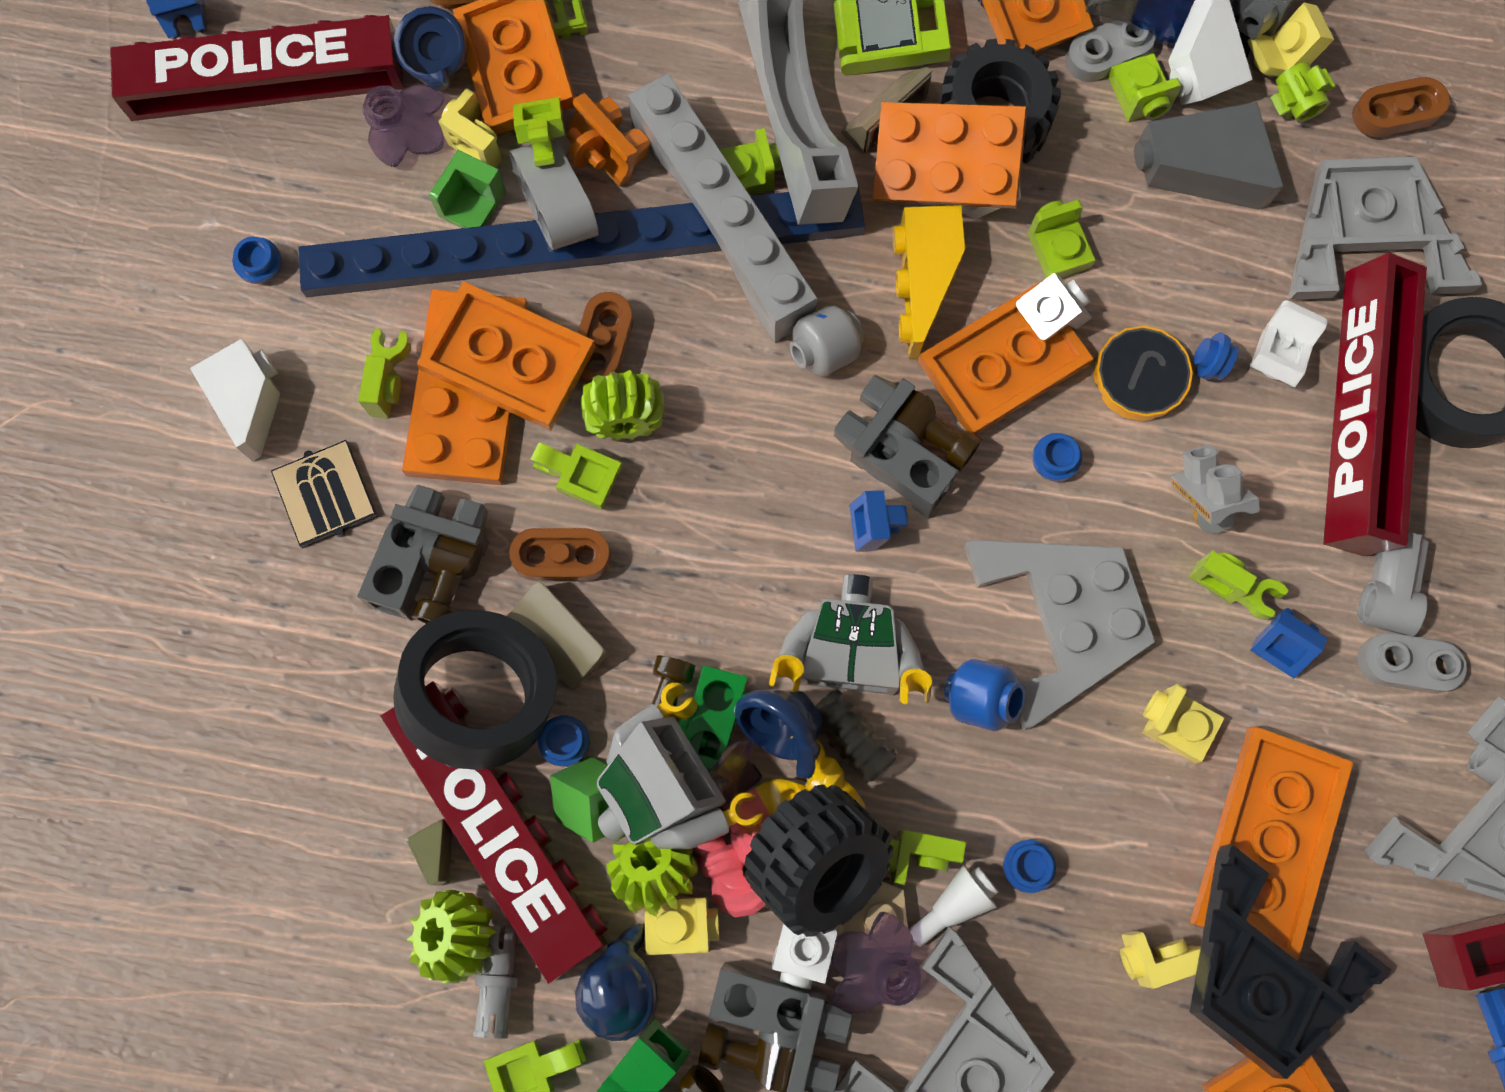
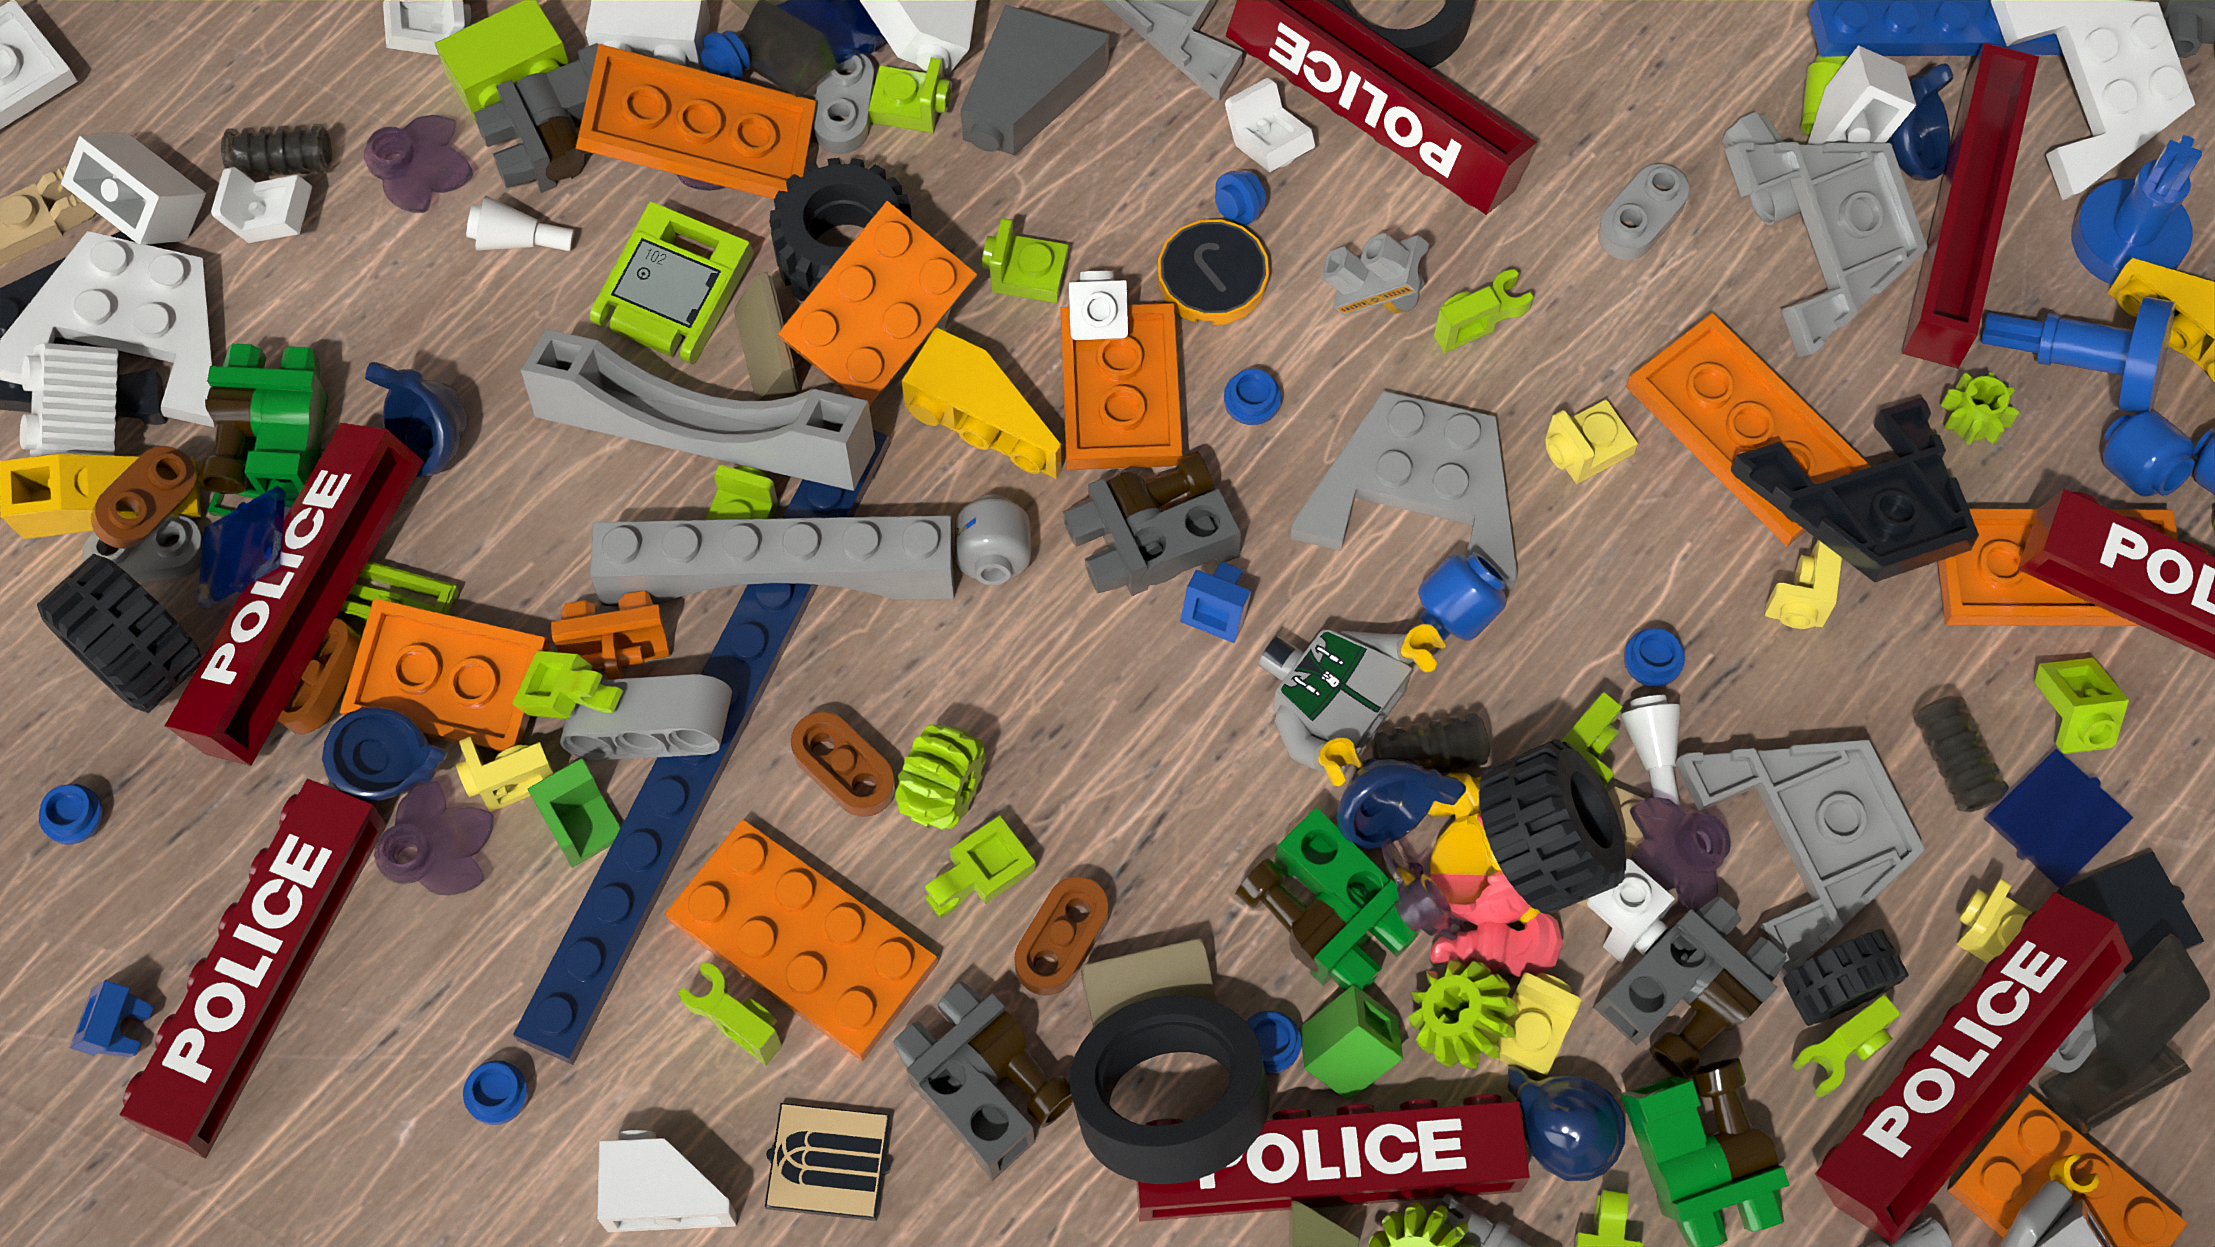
camera: 60 degrees left, 10 degrees down
(506, 355) = (808, 862): orange plate -> none
(660, 785) = (1390, 939): light grey torso -> none
(1289, 643) = (1566, 300): blue tile -> none
(1393, 595) = (1572, 188): light grey piece -> none
(1403, 1035) = (1979, 408): none -> lime gear

